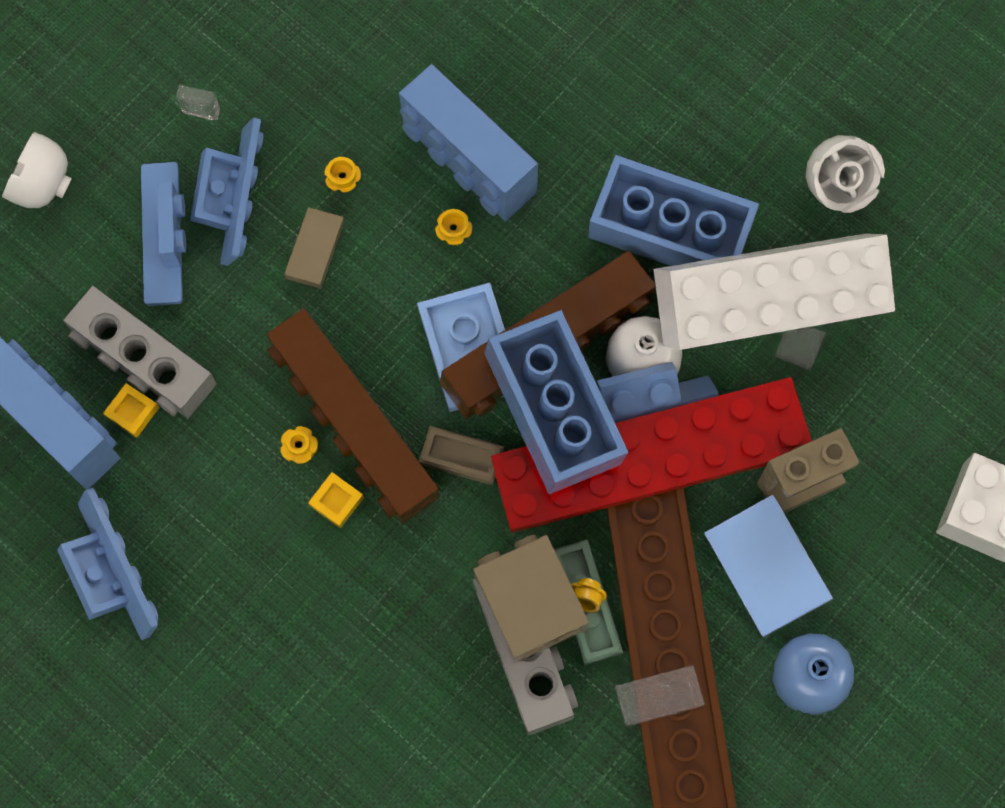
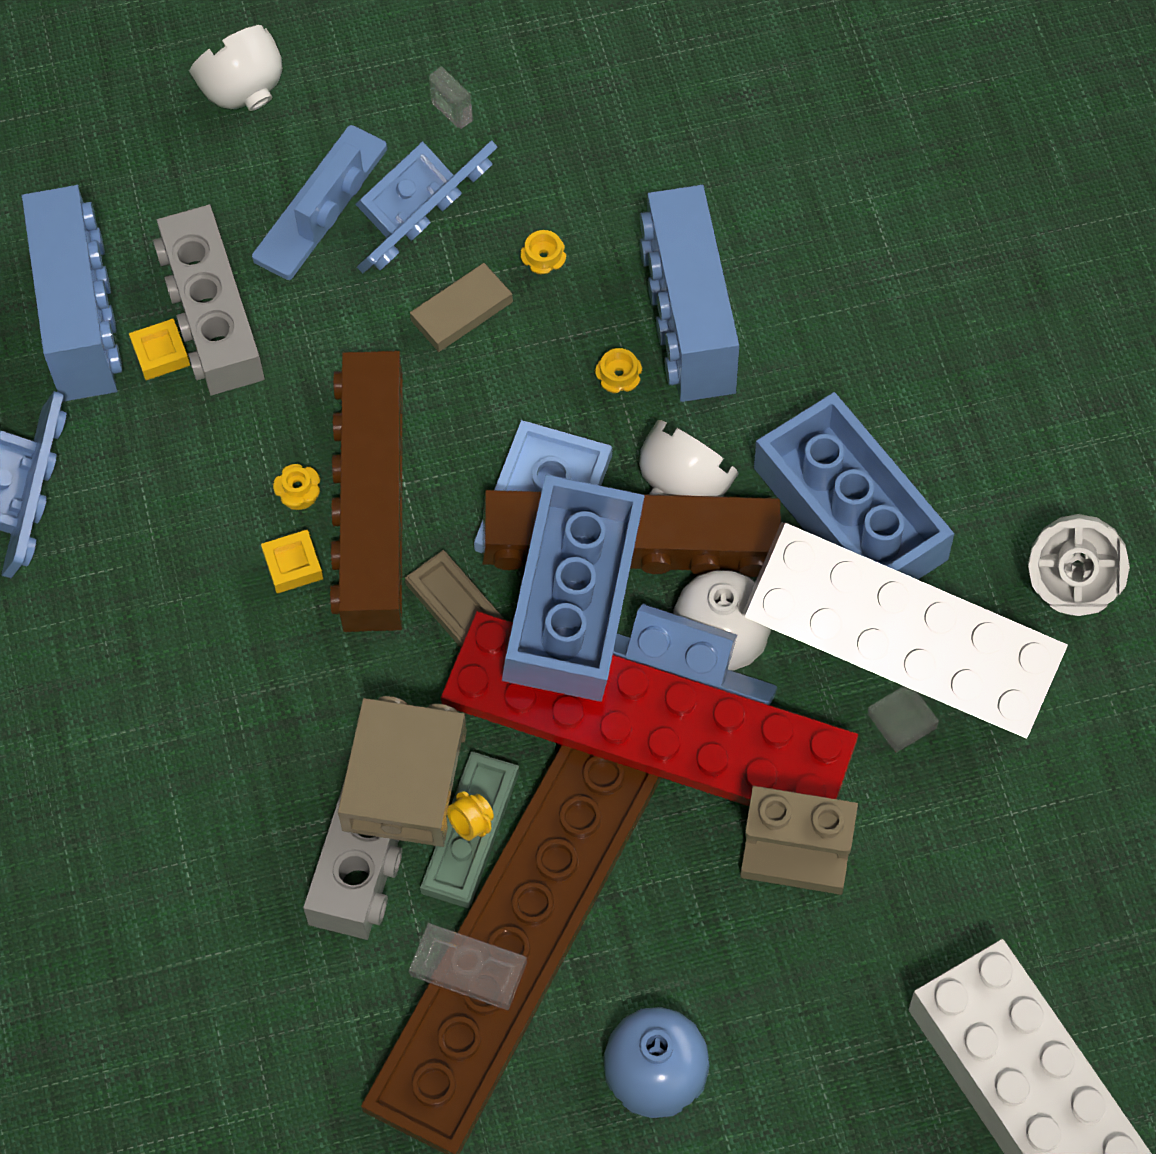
camera: 35 degrees right, 10 degrees down
(549, 269) = (682, 465): none -> white cylinder
(768, 566) = (691, 918): light blue tile -> none

